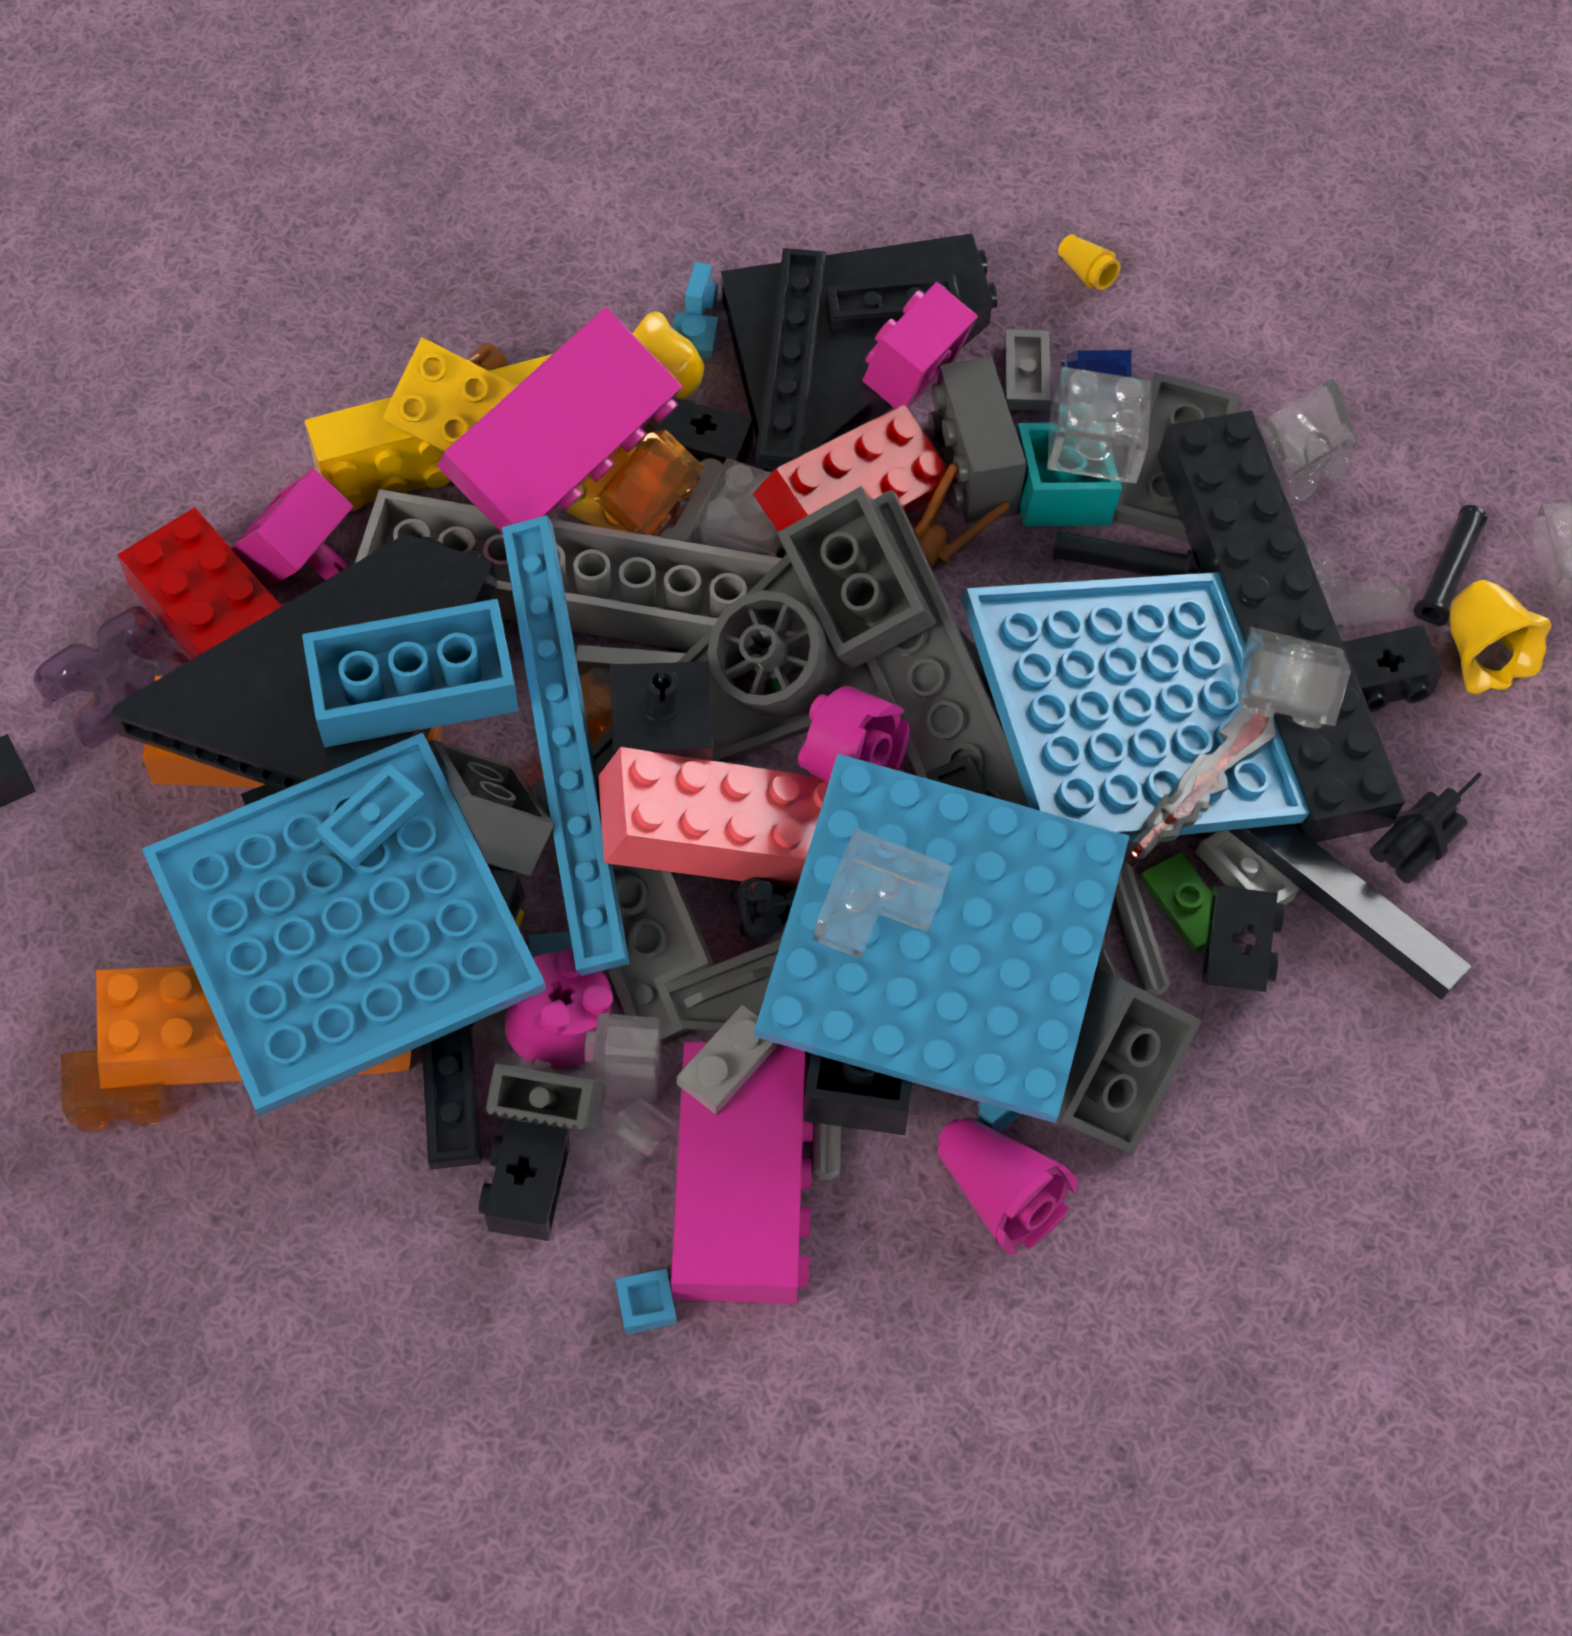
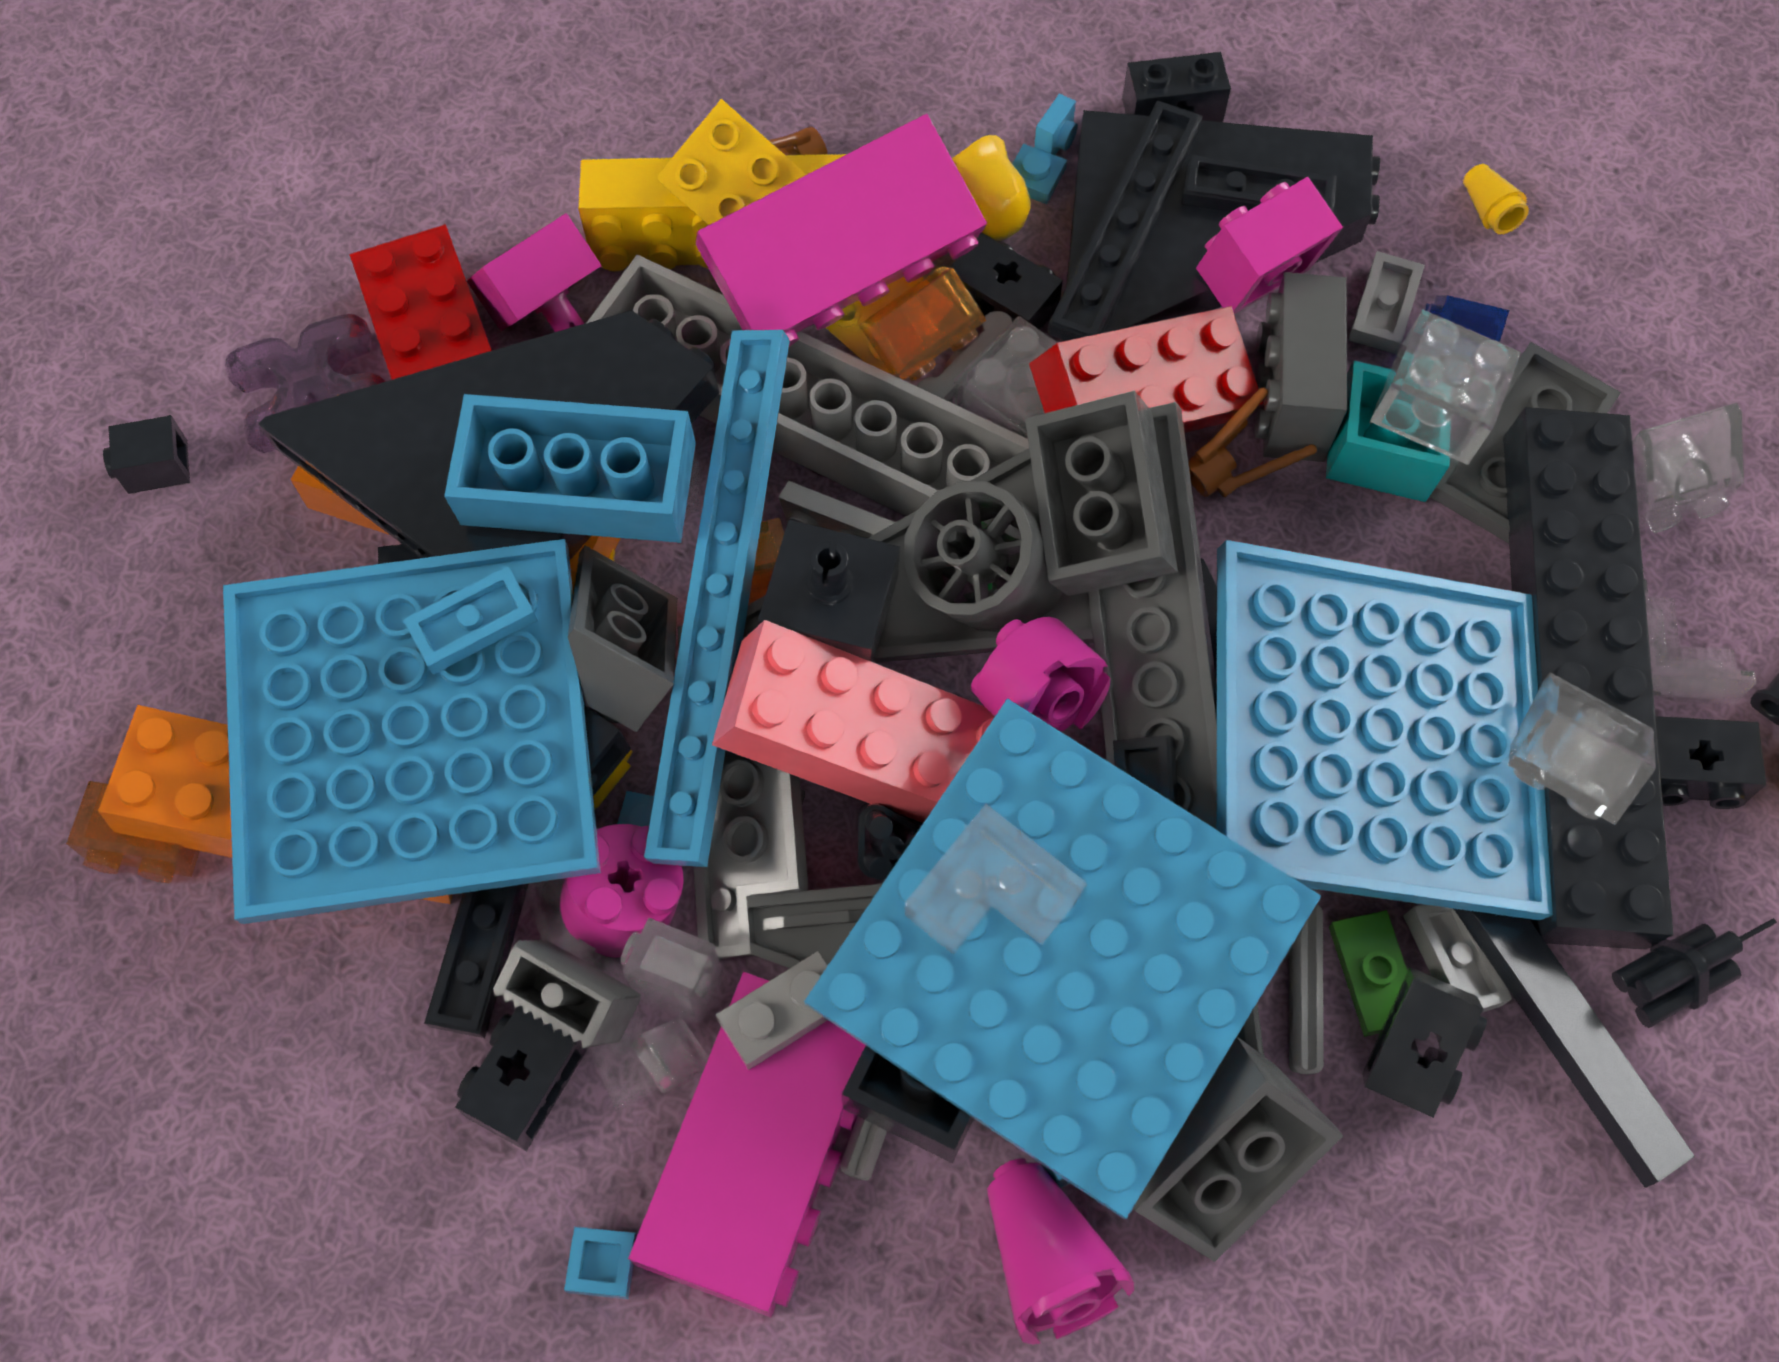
camera: 20 degrees right, 5 degrees up
(802, 225) = (1187, 82): none -> black brick
(1120, 555) = (1427, 542): black pin -> none
(1201, 780) = (1432, 844): sword -> none

